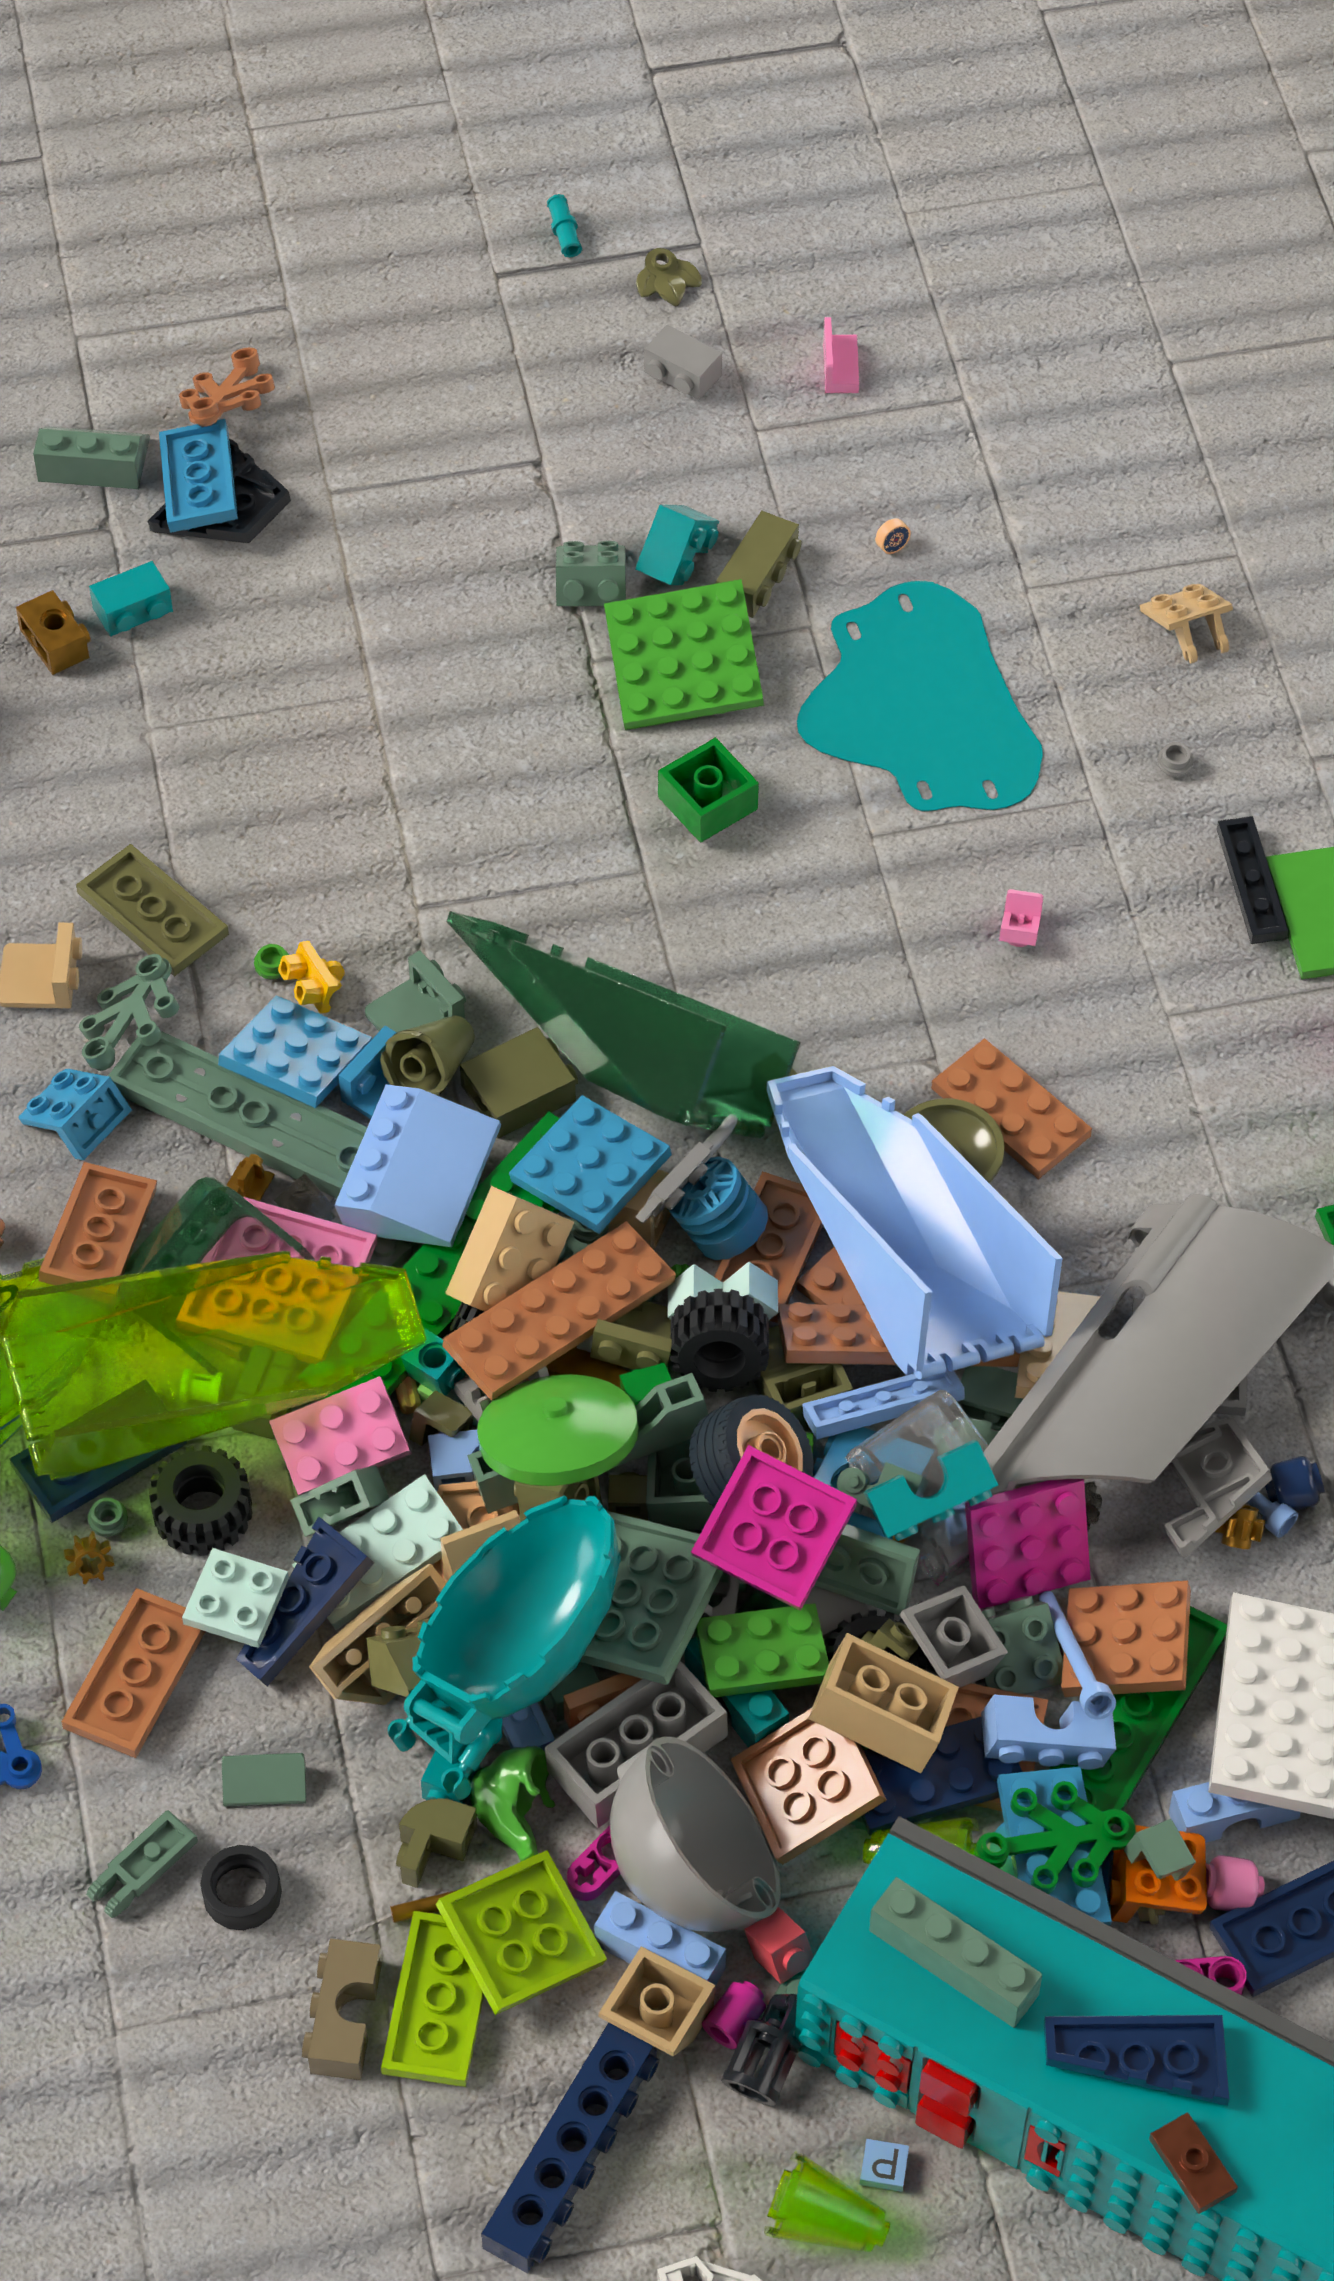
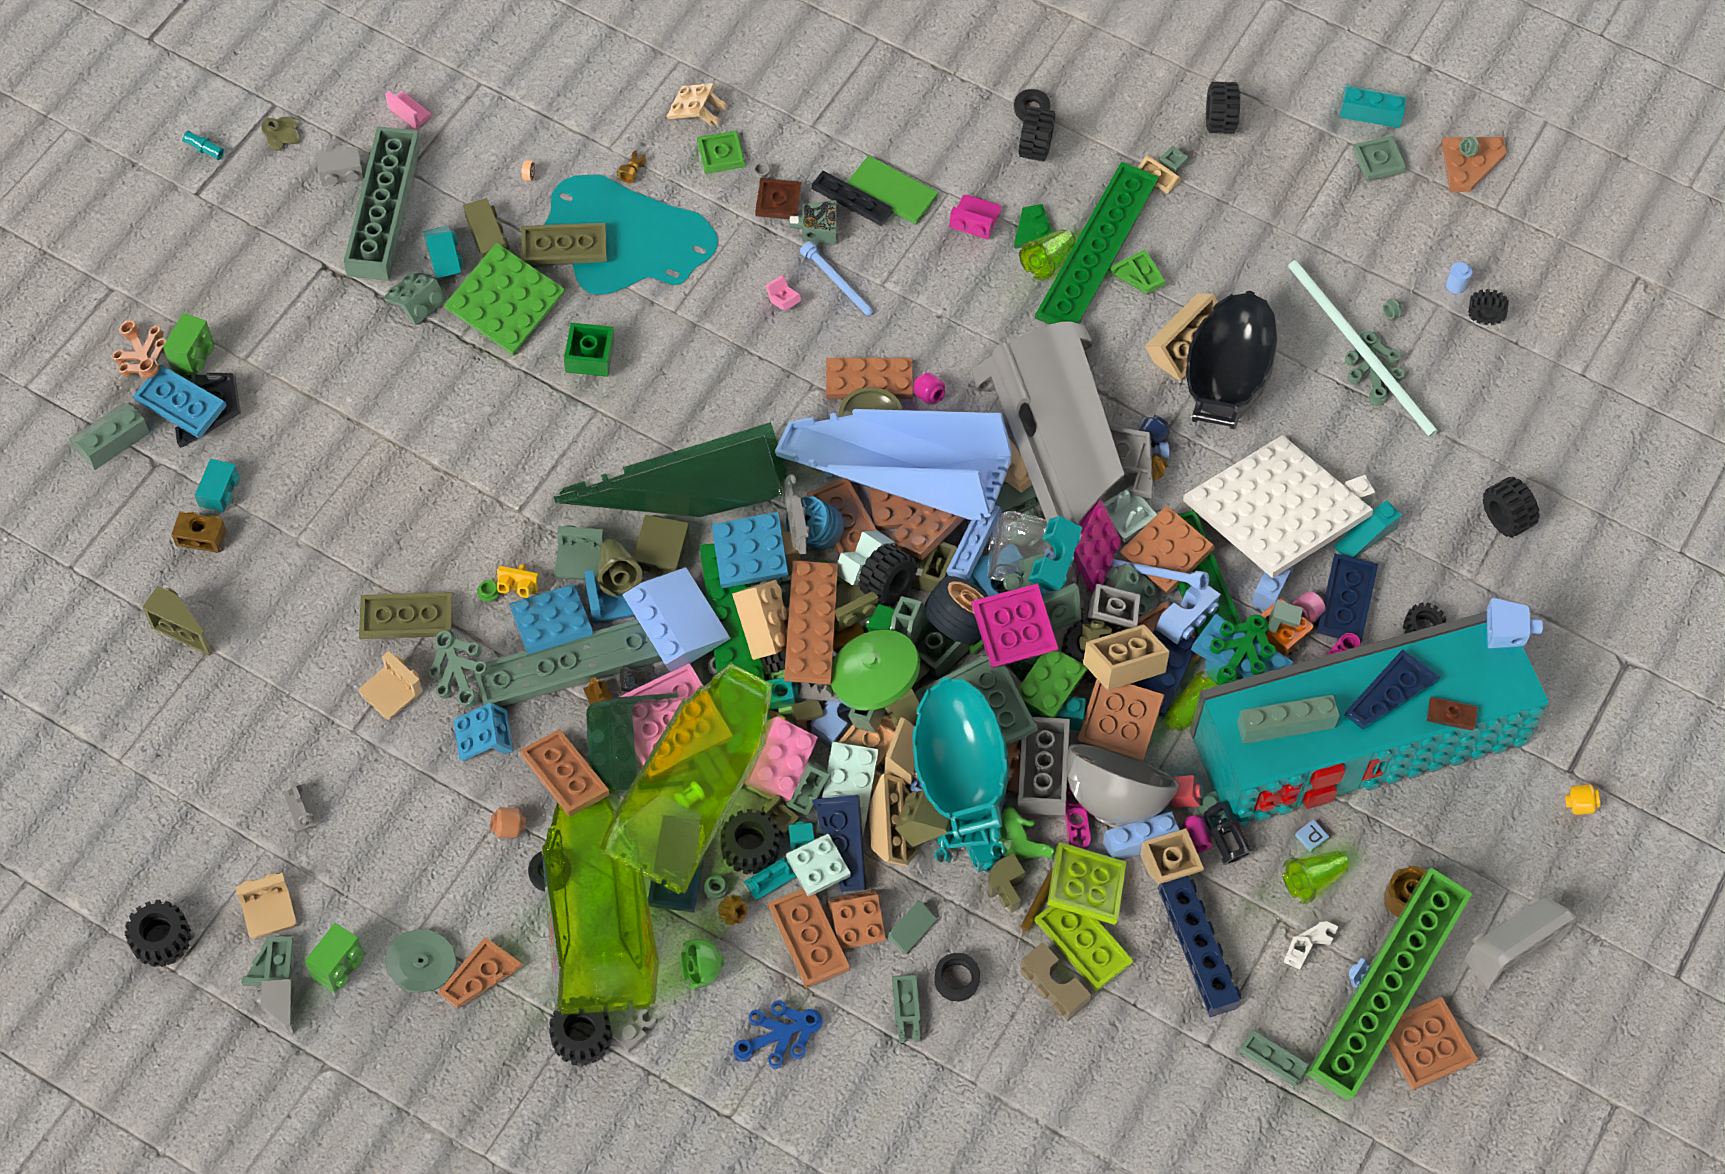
camera: 50 degrees left, 5 degrees up
(169, 1565) = (770, 879): none -> teal hinge
(212, 1705) = (857, 919): none -> nougat bracket
(267, 1547) = (800, 834): none -> teal plate
(271, 1504) = (780, 814): none -> olive bracket
(278, 422) = (189, 345): none -> bright green brick
(676, 438) = (382, 203): none -> sand green brick
(831, 650) = (563, 243): none -> olive plate
(1009, 632) = (628, 172): none -> pearl gold piece
(1066, 1181) = (929, 388): none -> dark pink head
(1120, 899) = (810, 251): none -> light blue piece
(1132, 1549) = (1128, 513): none -> light aqua plate
(1155, 698) = (720, 152): none -> bright green tile
(1156, 806) = (778, 198): none -> copper plate
(1172, 872) = (817, 222): none -> torso

